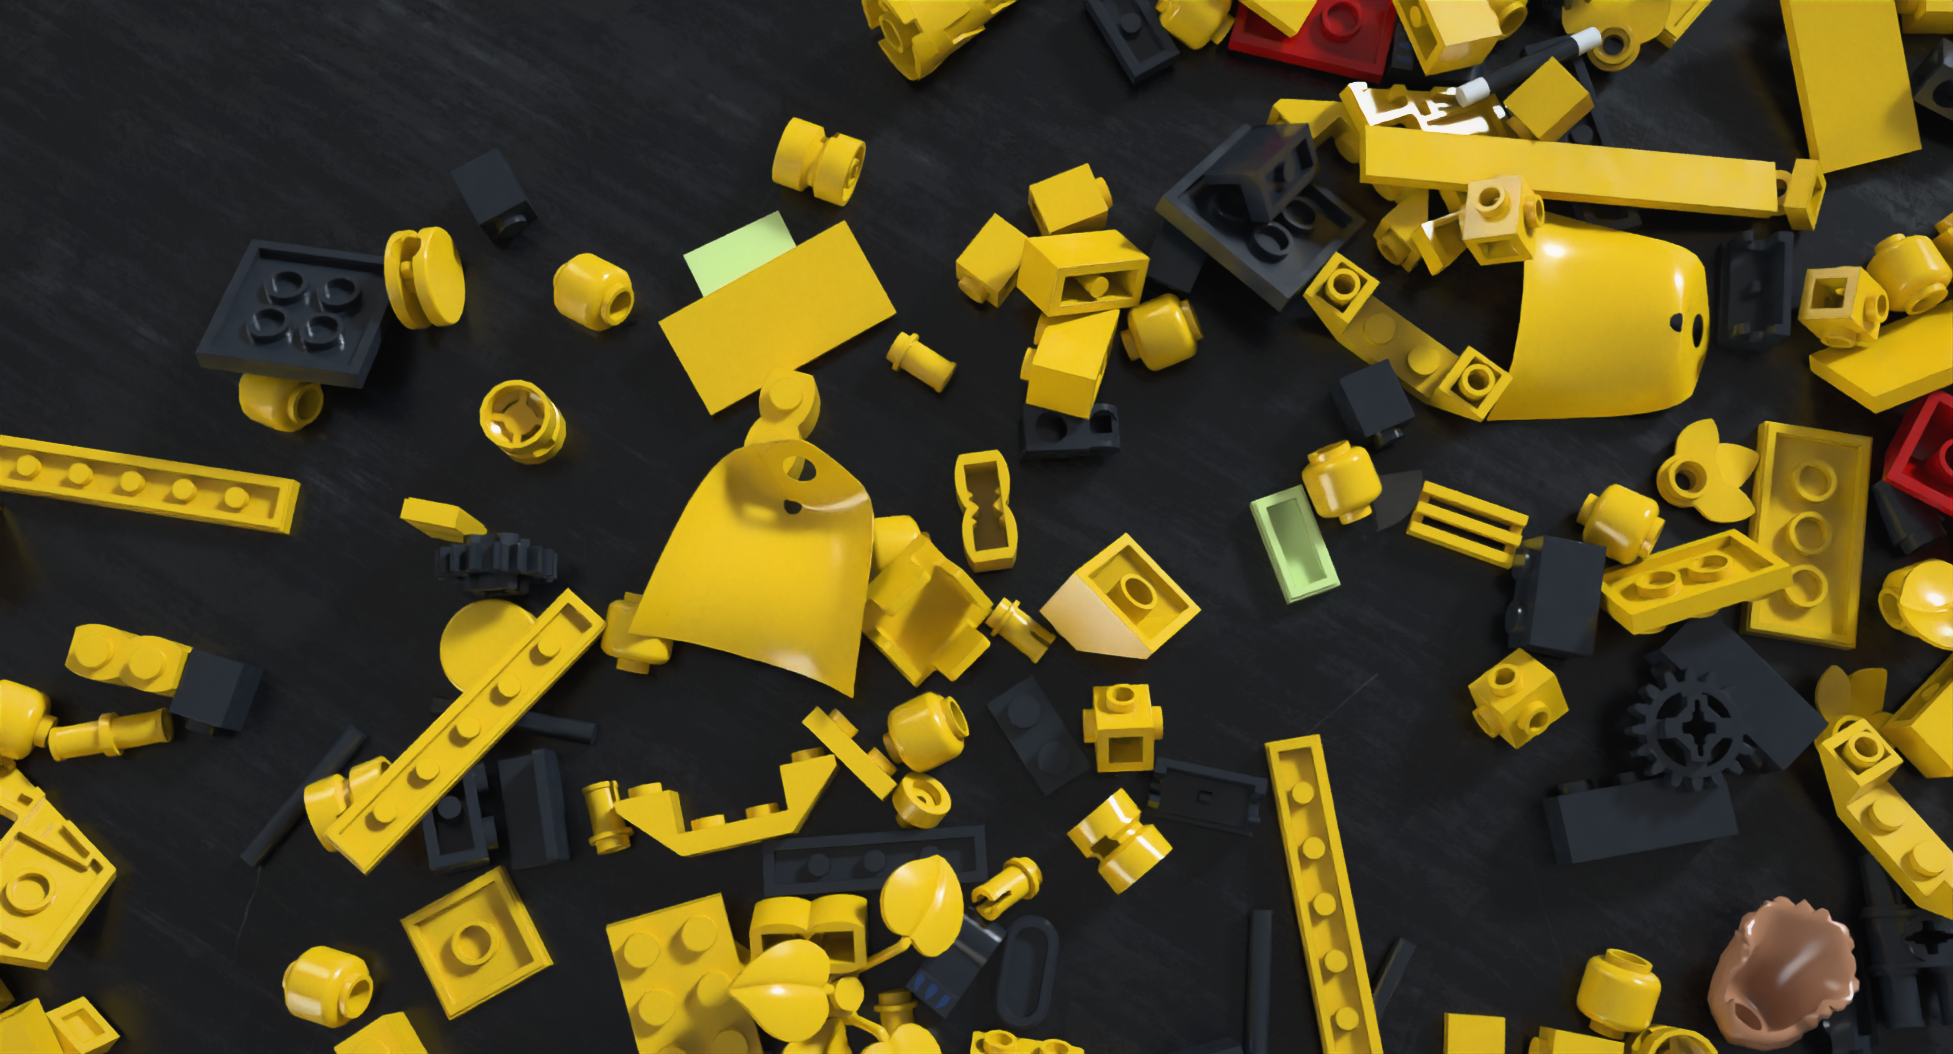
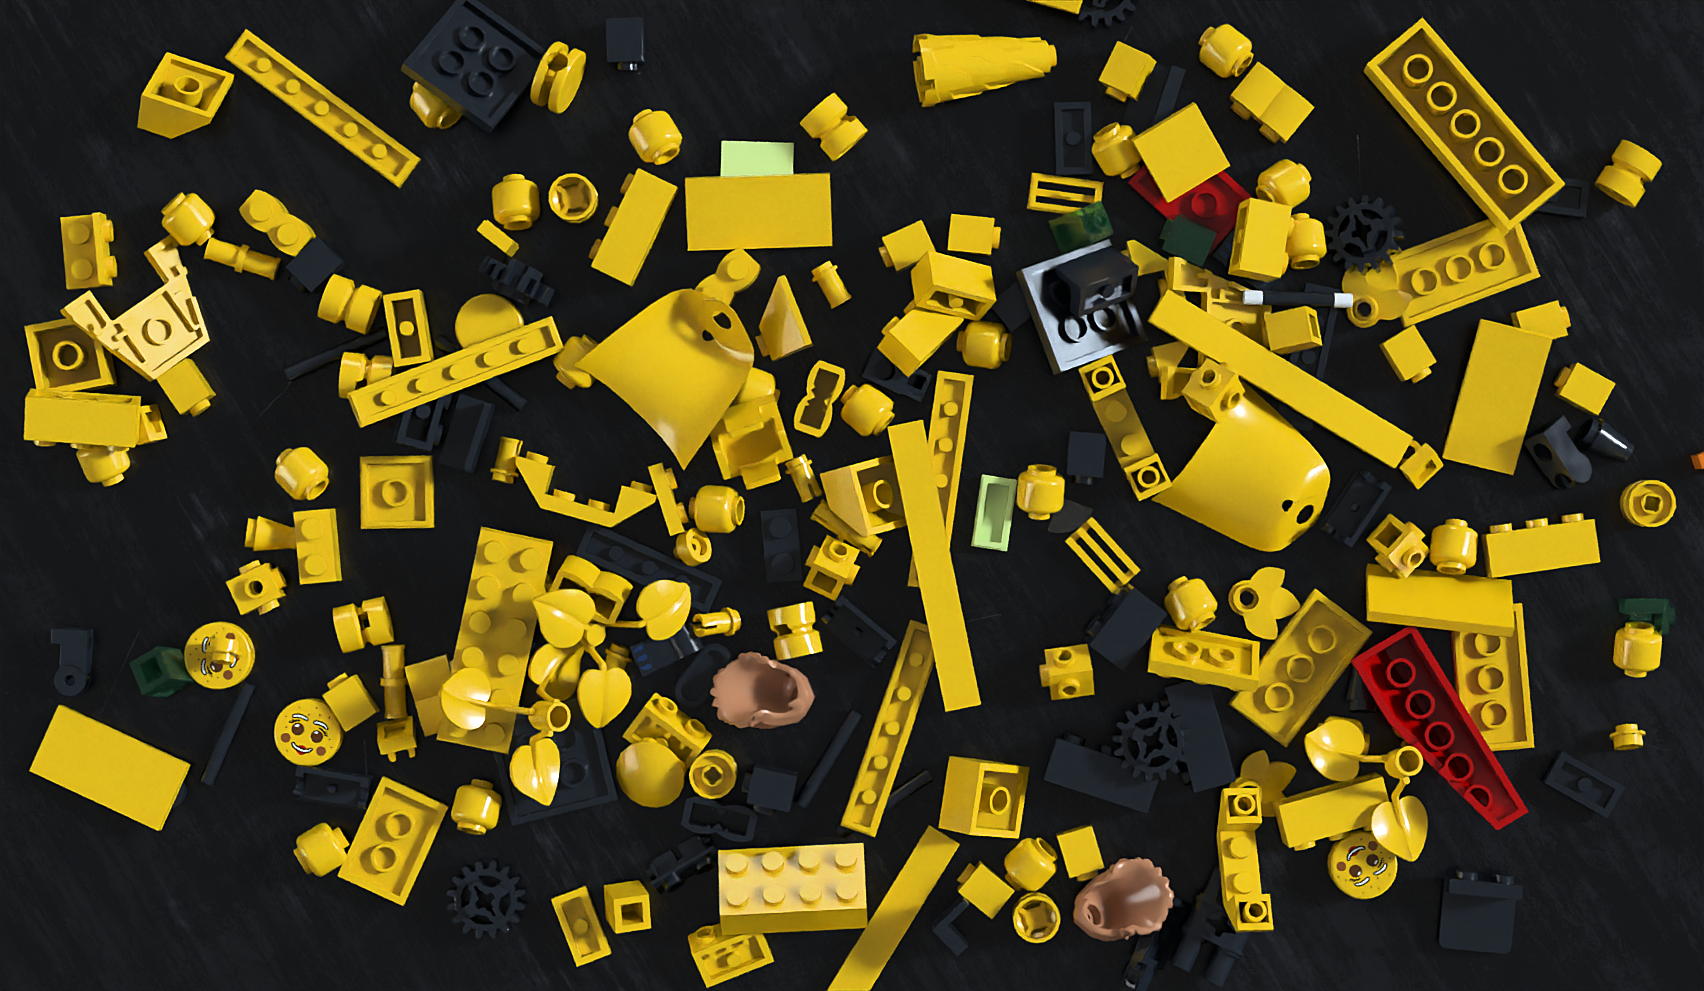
camera: 25 degrees right, 10 degrees up
(109, 951) = (186, 388): none -> yellow brick
(274, 719) = (351, 304): none -> yellow wheel
(376, 703) = (408, 328): none -> yellow brick
(449, 468) = (515, 202): none -> yellow head
(622, 420) = (633, 226): none -> yellow brick
(888, 438) = (782, 324): none -> yellow slope
(1055, 494) = (867, 409): none -> yellow head
(1113, 668) = (831, 521): none -> yellow pin
(1120, 953) = (760, 693): none -> nougat piece
(1165, 121) = (1034, 191): none -> yellow tile
(1202, 124) = (1081, 227): none -> clear green bracket
(1203, 539) = (947, 444): none -> yellow plate
(1262, 654) = (934, 565): none -> yellow tile
(1350, 57) = (1188, 238): none -> clear green brick
(1500, 935) = (983, 797): none -> yellow slope
(1674, 938) = (1080, 852): none -> yellow brick
(1703, 68) = (1408, 355): none -> yellow brick

